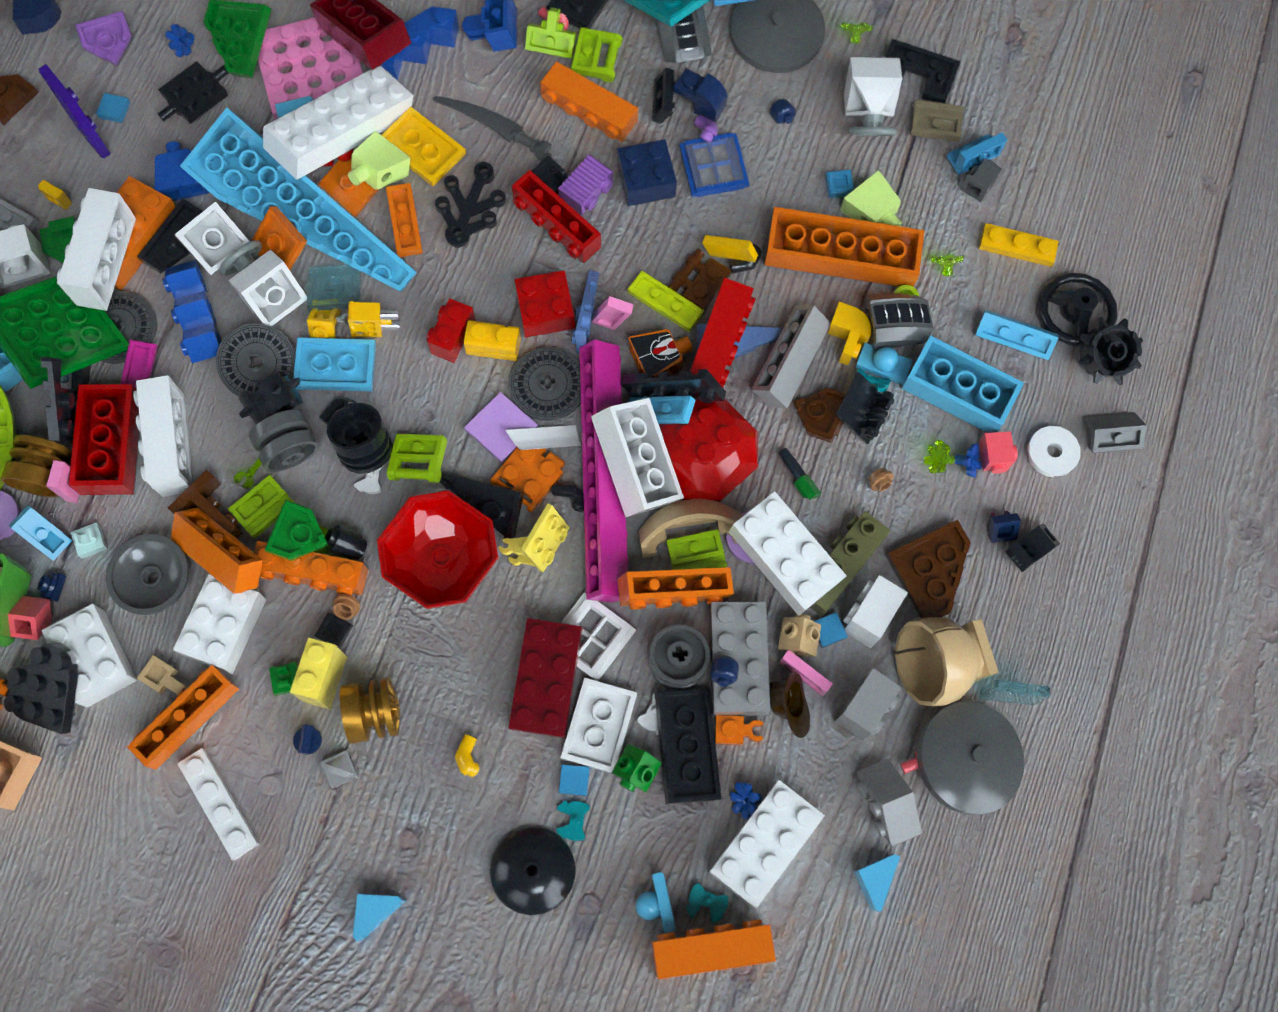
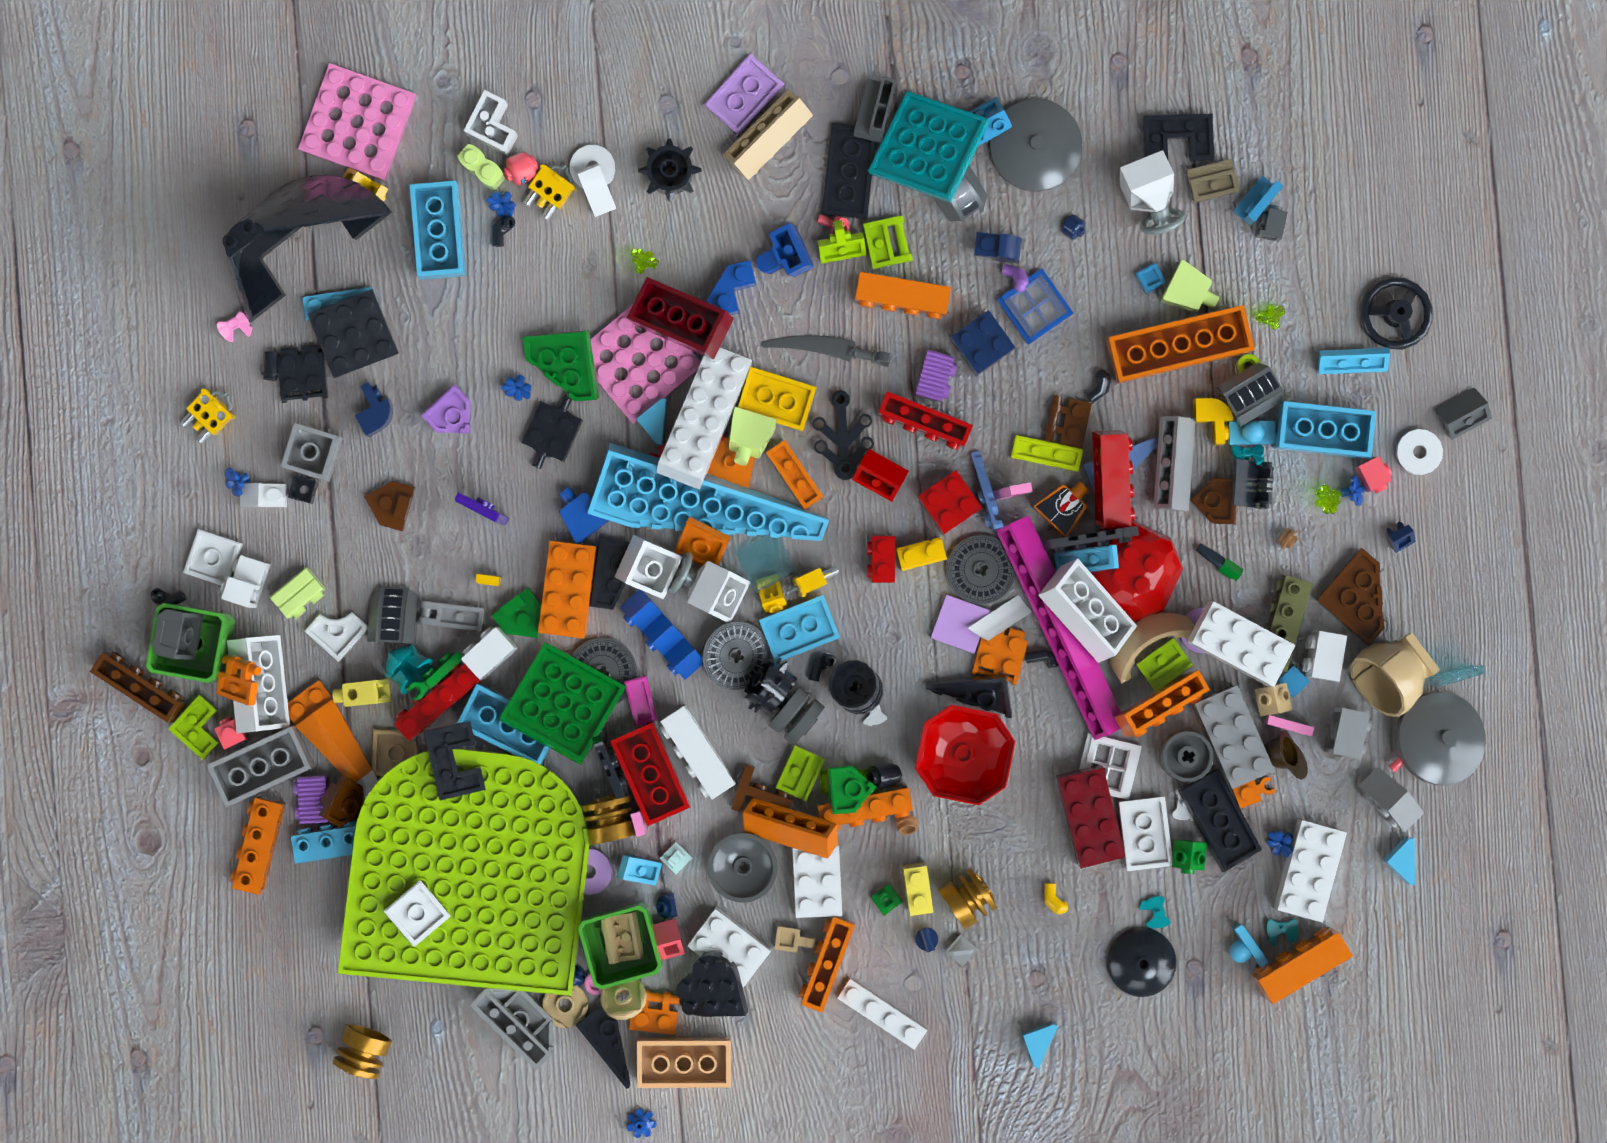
camera: 20 degrees left, 15 degrees up
(96, 249) = (572, 626): white brick -> none
(113, 108) = (490, 476): dark azure tile -> none
(249, 475) = (775, 748): clear neon green hand -> none
(333, 630) = (905, 846): black tile -> none
(417, 449) = (903, 674): lime plate -> none
(487, 249) = (880, 475): none -> red brick
(541, 544) = (1040, 717): light yellow plate -> none
(550, 173) = (901, 384): black panel -> none
(574, 780) = (1143, 882): dark azure tile -> none
(663, 96) = (964, 260): black plate -> none
(724, 670) = (1228, 755): dark blue piece -> none
(730, 248) = (1086, 386): yellow tile -> none
(856, 30) = (1108, 117): clear neon green plant -> none
(1018, 245) = (1325, 272): yellow plate -> none
(1032, 547) = (1430, 546): black brick -> none
(1110, 351) = (1437, 348): black brick -> none

